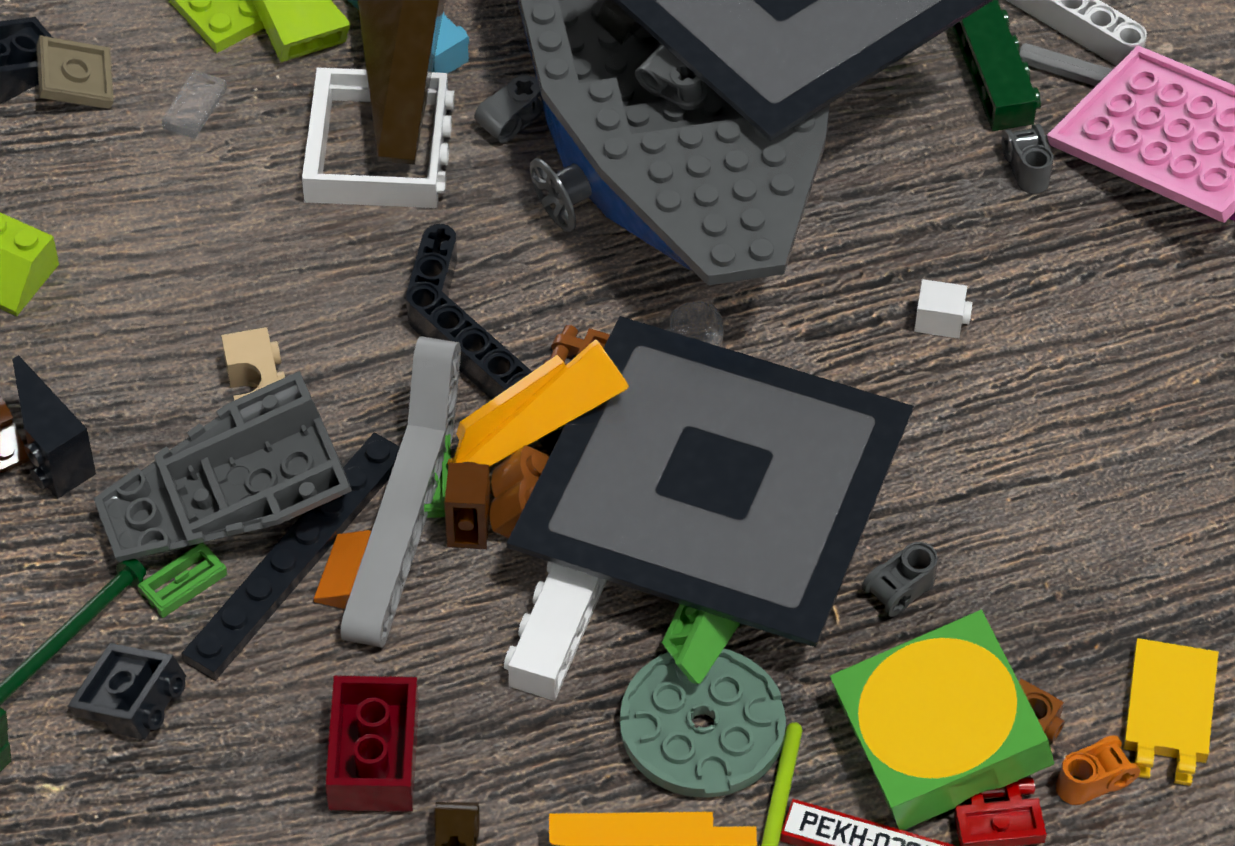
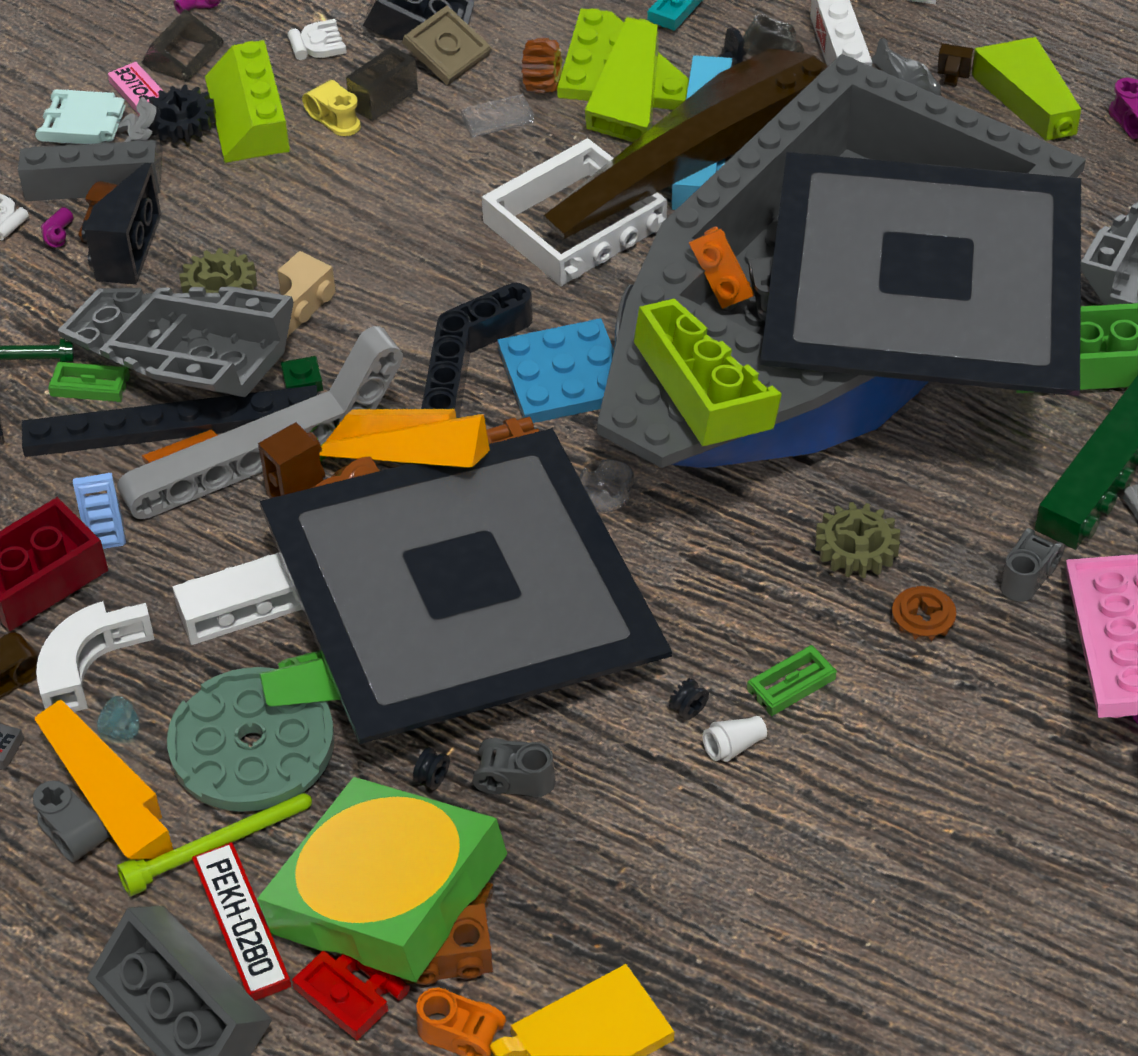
camera: 50 degrees right, 5 degrees down
(51, 196) = (333, 108): none -> light yellow piece
(76, 145) = (383, 82): none -> clear smoke brick
(172, 410) = (218, 271): none -> olive gear
(188, 32) = (541, 65): none -> dark orange gear
(348, 433) = (302, 373): none -> dark green plate
(367, 652) = (100, 511): none -> light blue slope
(503, 798) = (80, 642): none -> white arch
(535, 271) = (558, 369): none -> dark azure plate
(591, 793) = (115, 718): none -> clear light blue tile
(633, 87) = (721, 267): none -> orange hinge
(753, 178) = (701, 376): none -> lime wedge
(851, 628) = (431, 768): none -> black bush
(906, 230) = (857, 540): none -> olive gear
(942, 309) = (806, 612): white brick -> none
(947, 433) = (689, 699): none -> black bush
(982, 388) = (796, 685): none -> bright green tile
(1001, 235) = (933, 602): none -> dark orange gear
(1005, 437) = (731, 737): none -> white cone

